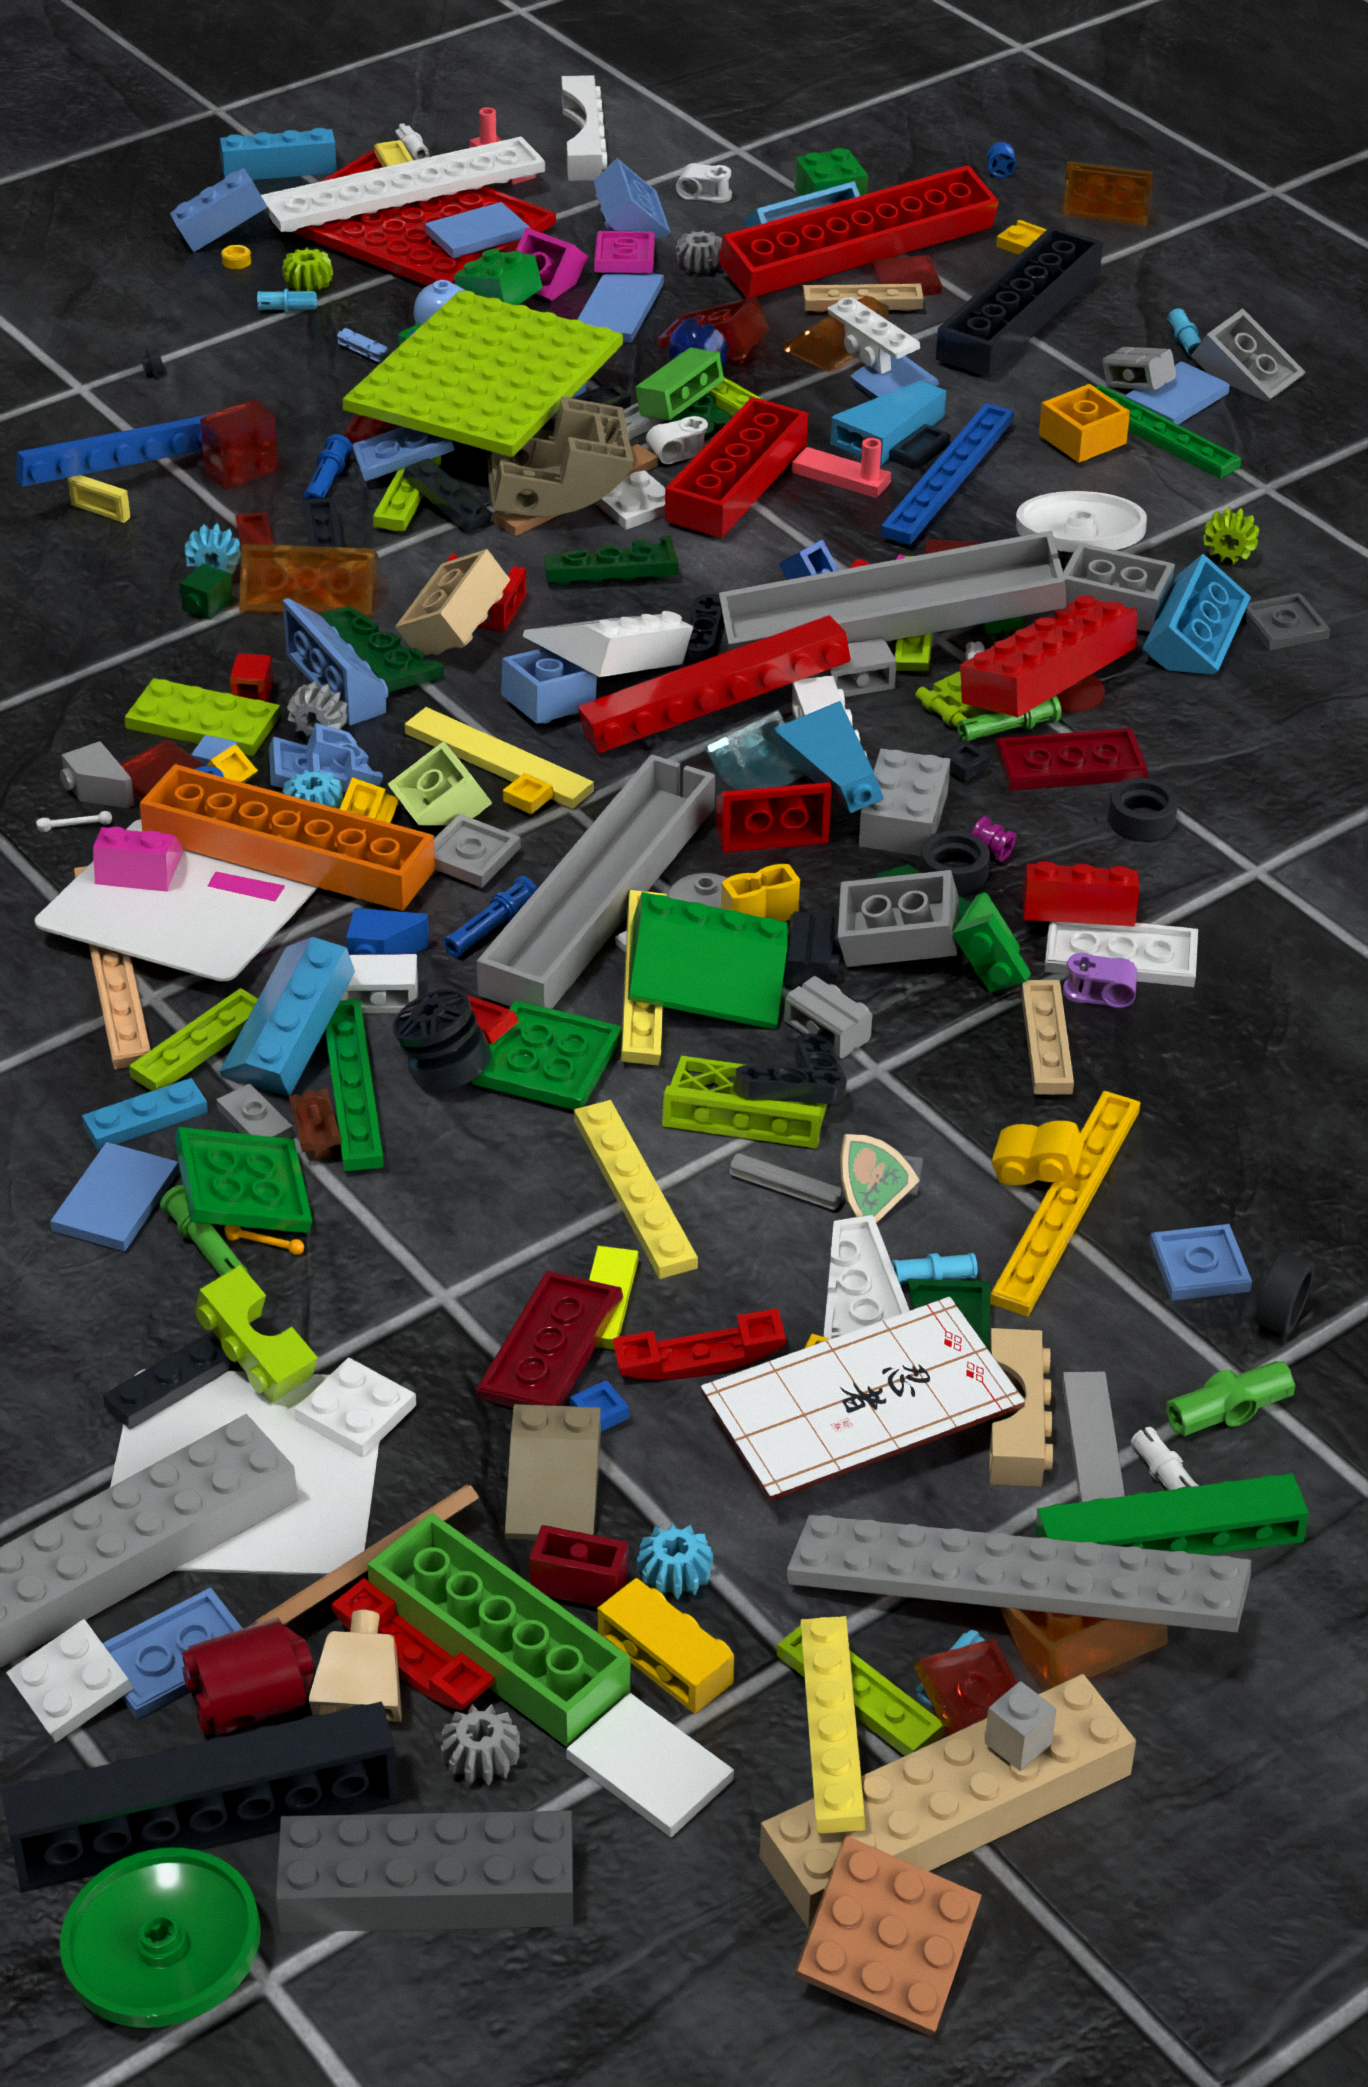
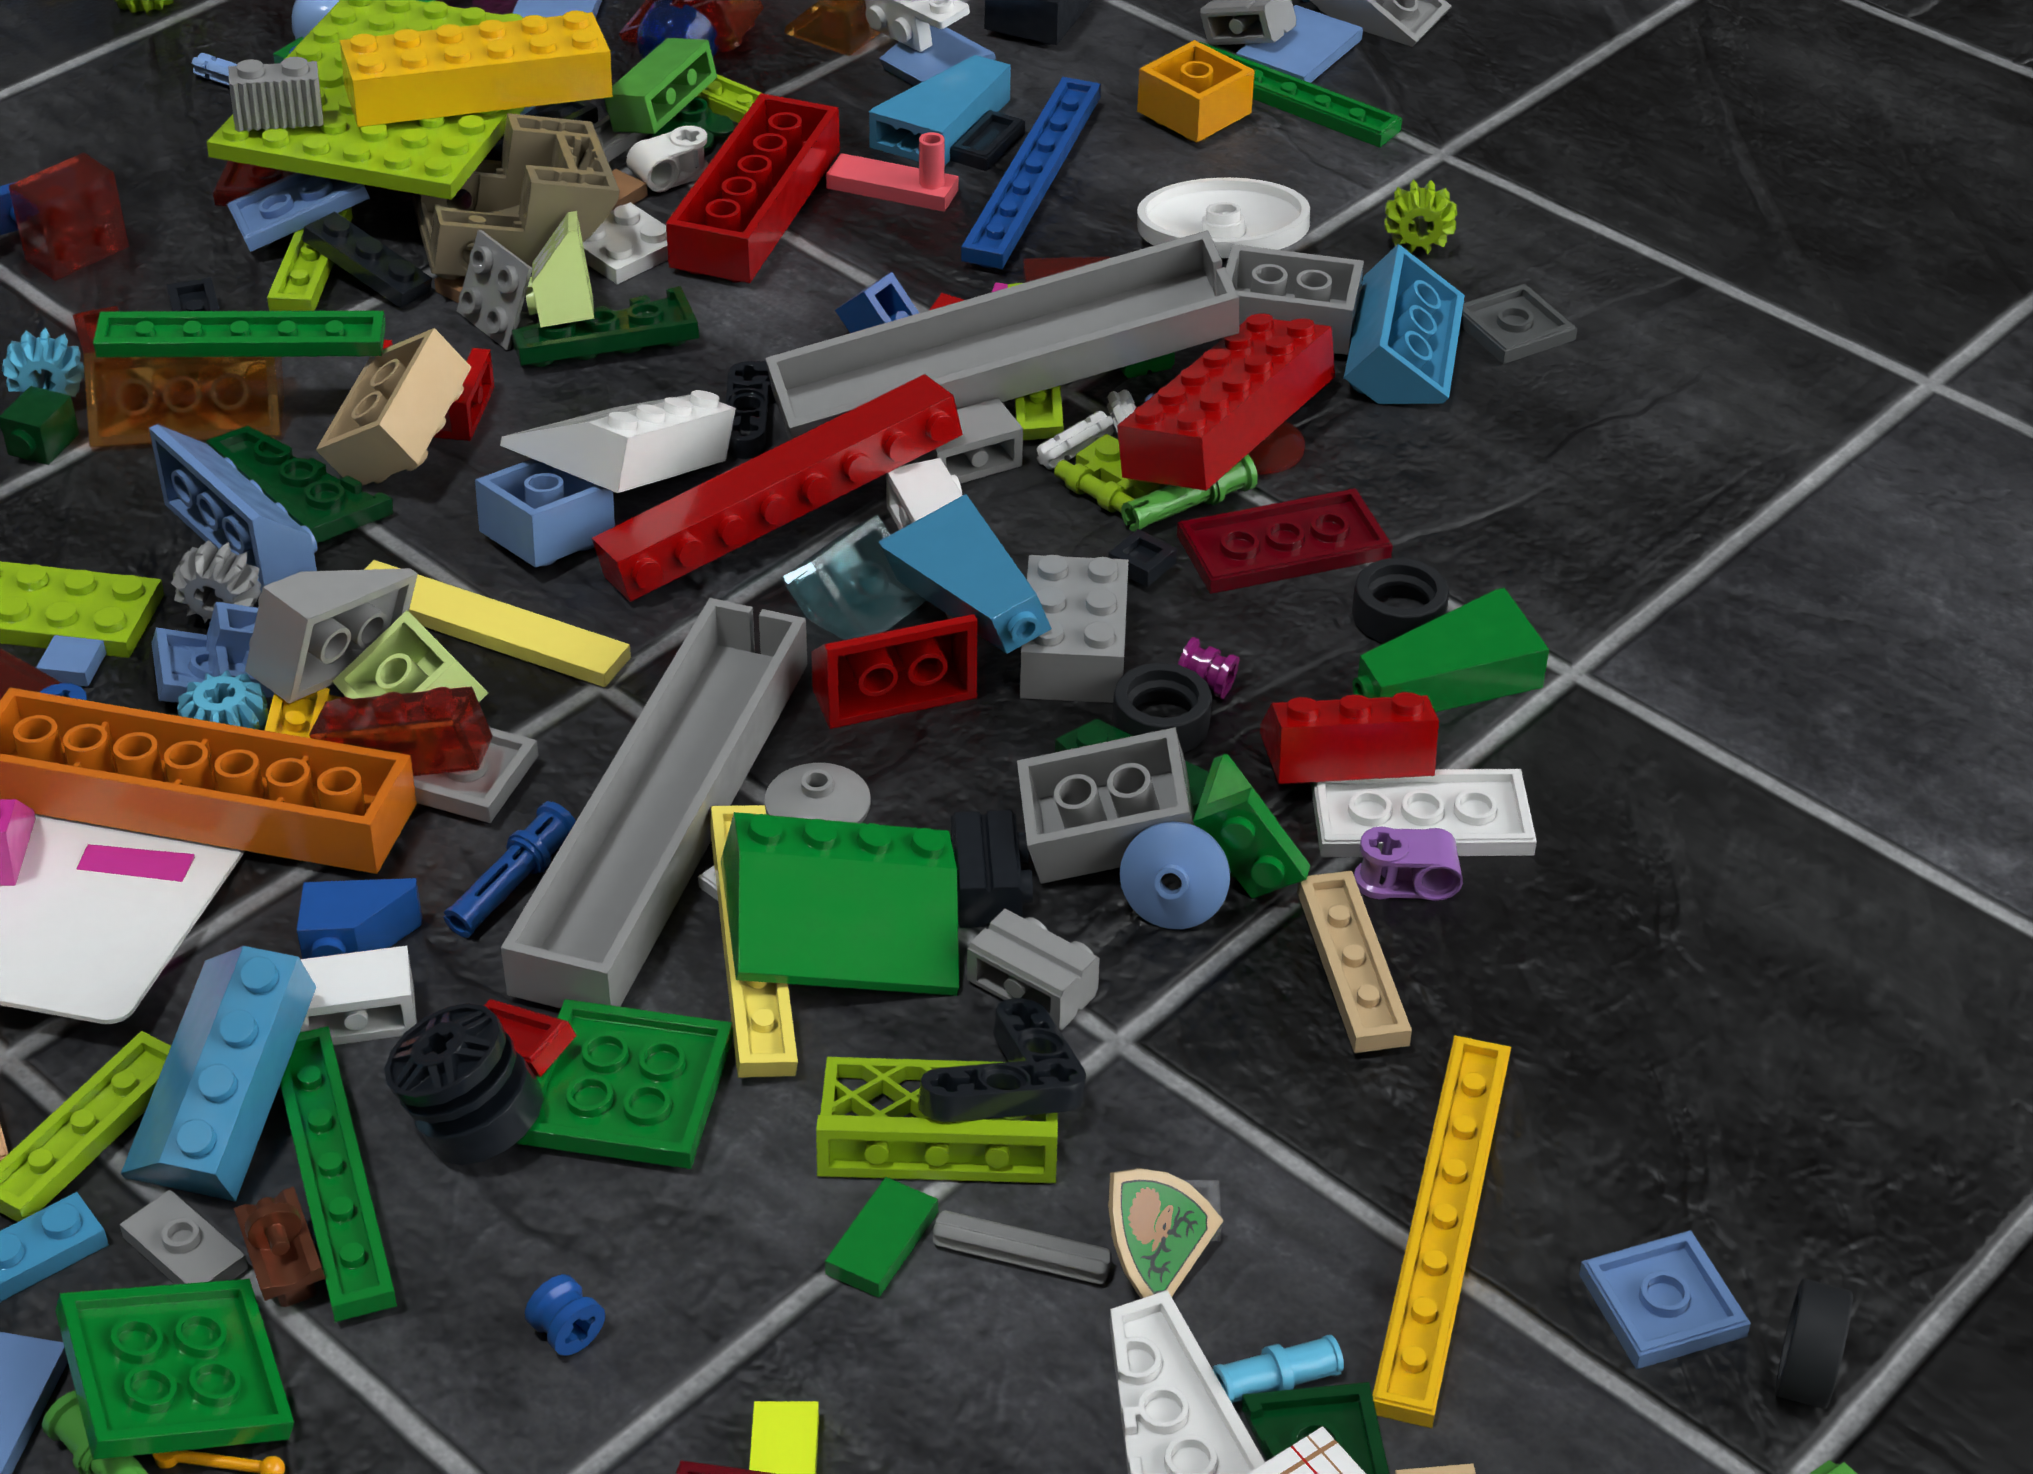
camera: 10 degrees left, 0 degrees up
(234, 764) = (101, 677): yellow plate -> none
(252, 676) = (116, 542): red brick -> none
(286, 300) = (118, 24): medium azure axle -> none
(330, 463) = (199, 232): blue pin -> none
(352, 540) = (239, 333): none -> green plate
(385, 743) = (320, 624): none -> light grey slope
(395, 368) = (275, 94): none -> light grey brick
(453, 818) = (436, 727): none -> clear red brick
(487, 1183) = (564, 1315): none -> blue wheel
(528, 793) = (537, 672): yellow plate -> none
(535, 526) = (495, 290): none -> light grey hinge
(543, 361) = (475, 68): none -> yellow brick
(583, 522) = (560, 278): none -> yellowish green slope
(635, 1189) = (797, 1294): light yellow plate -> none
(696, 1165) = (881, 1237): none -> green tile
(766, 894) = (908, 791): yellow brick -> none
(933, 673) = (1074, 439): none -> white axle
(947, 956) = (1181, 851): none -> medium blue dish
(1037, 1153) = (1389, 1153): yellow brick -> none
(1173, 850) = (1459, 657): none -> green slope

